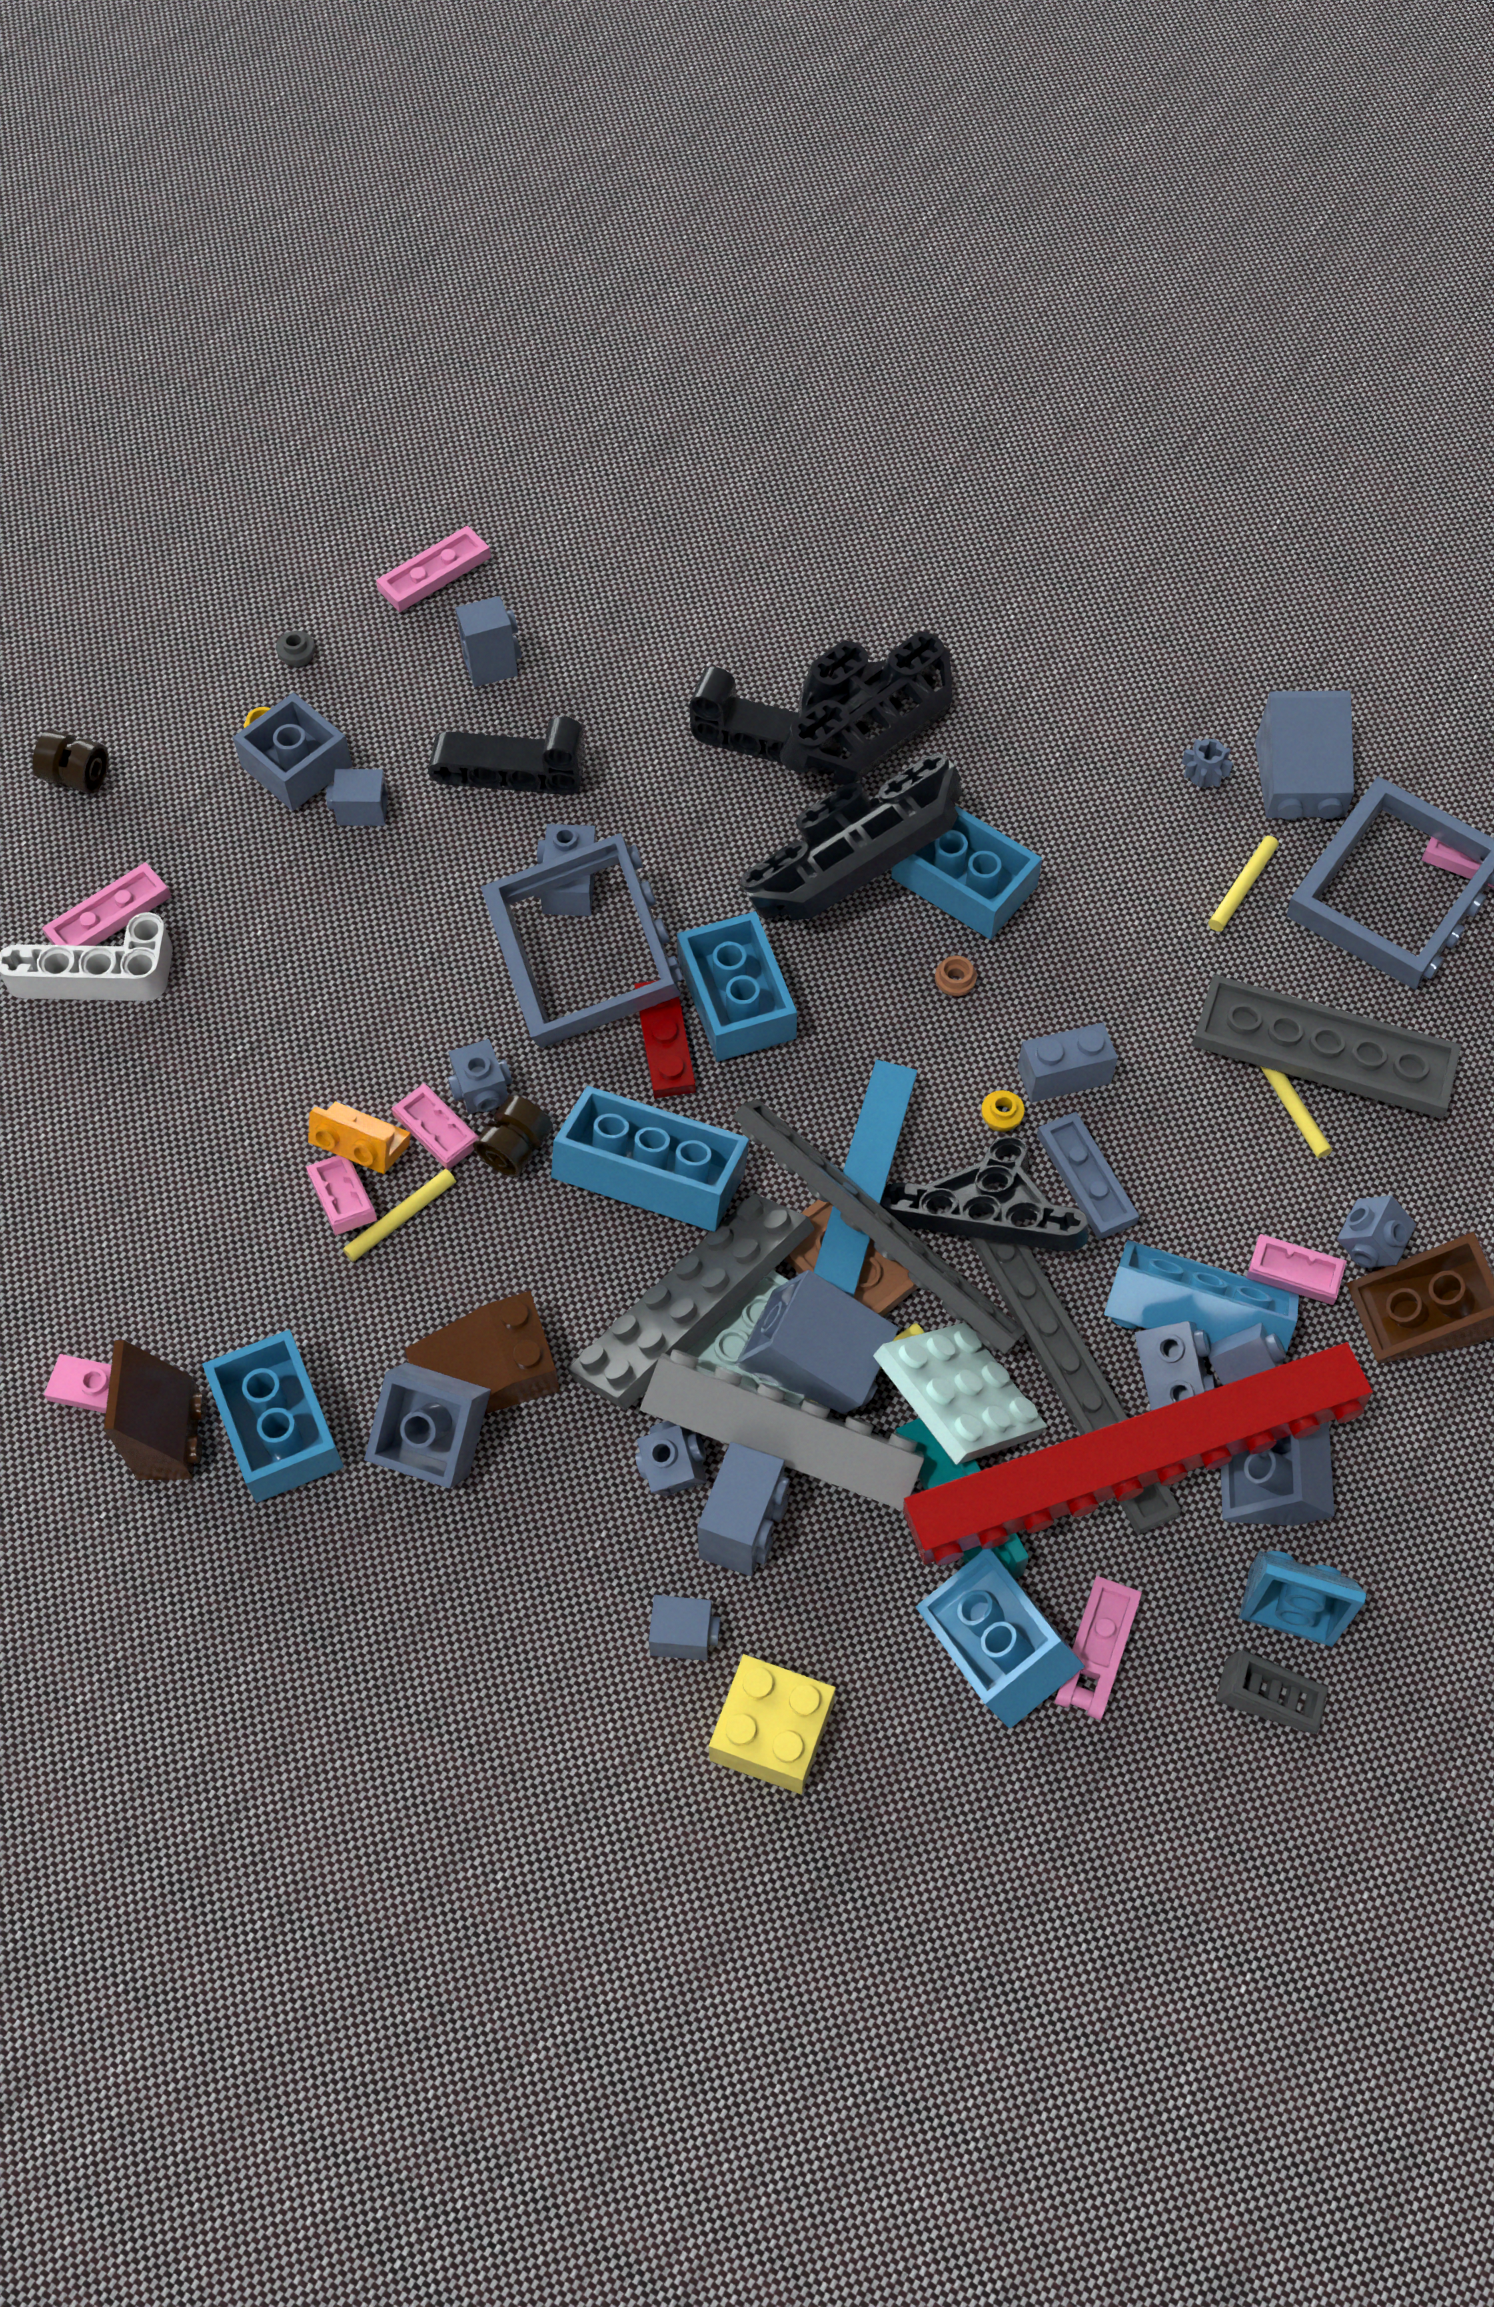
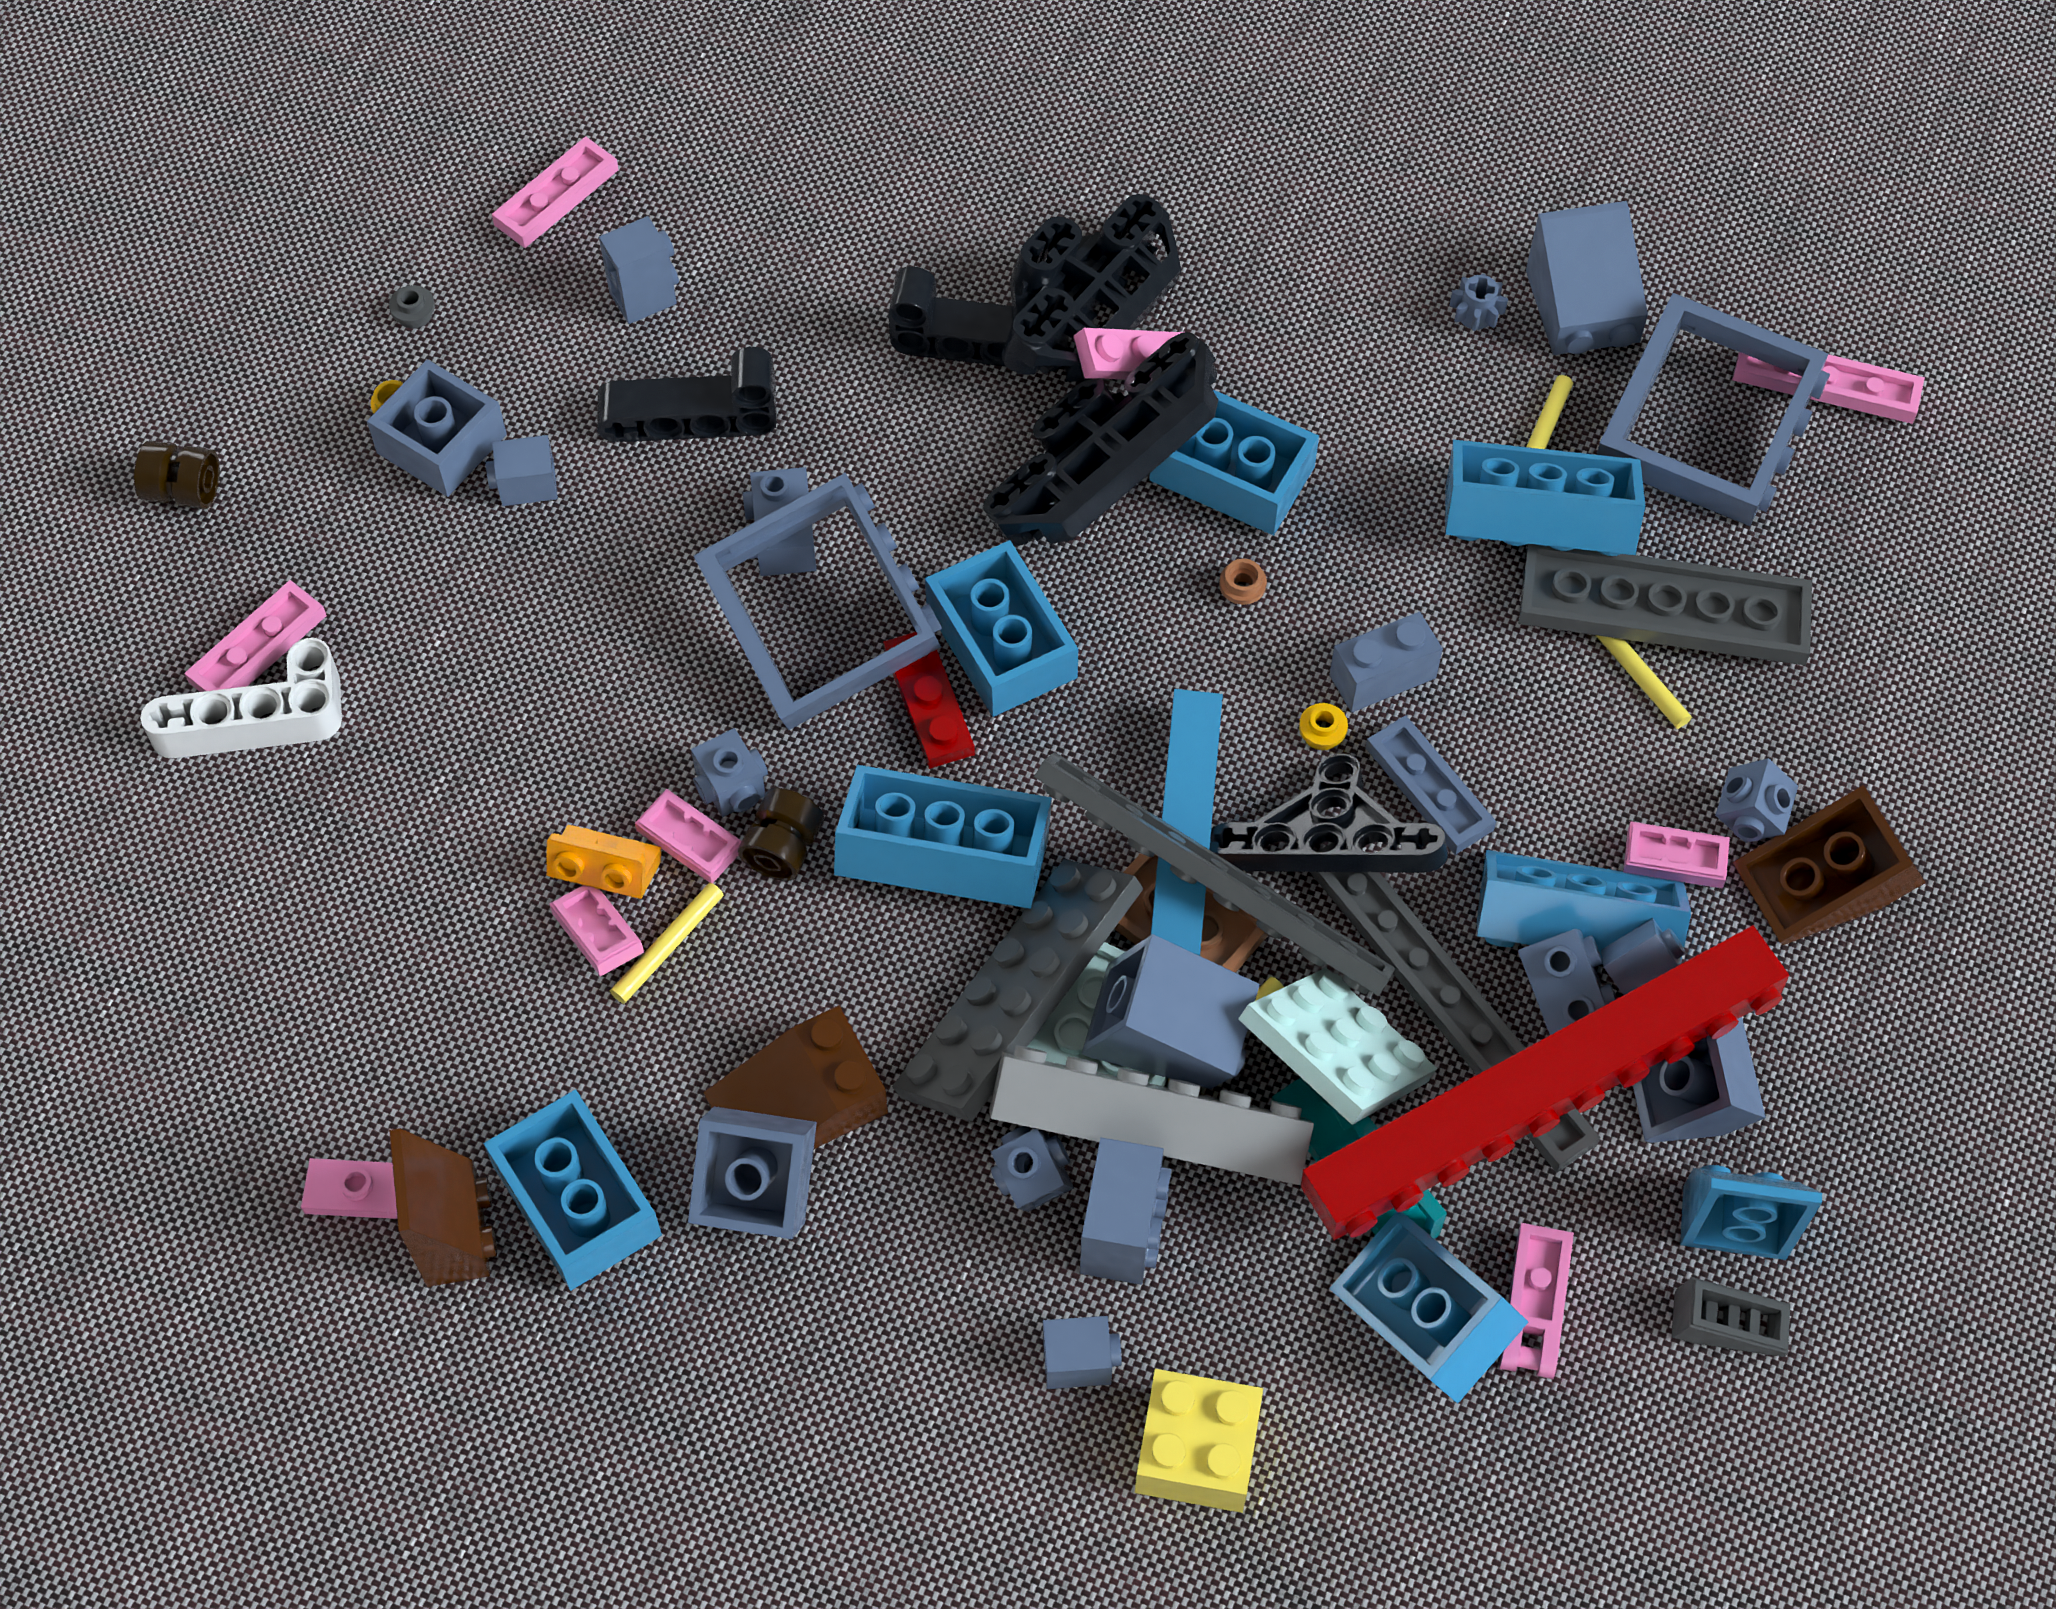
camera: 10 degrees left, 0 degrees up
(877, 762) = (1116, 351): none -> bright pink plate
(1233, 939) = (1544, 498): none -> dark azure brick

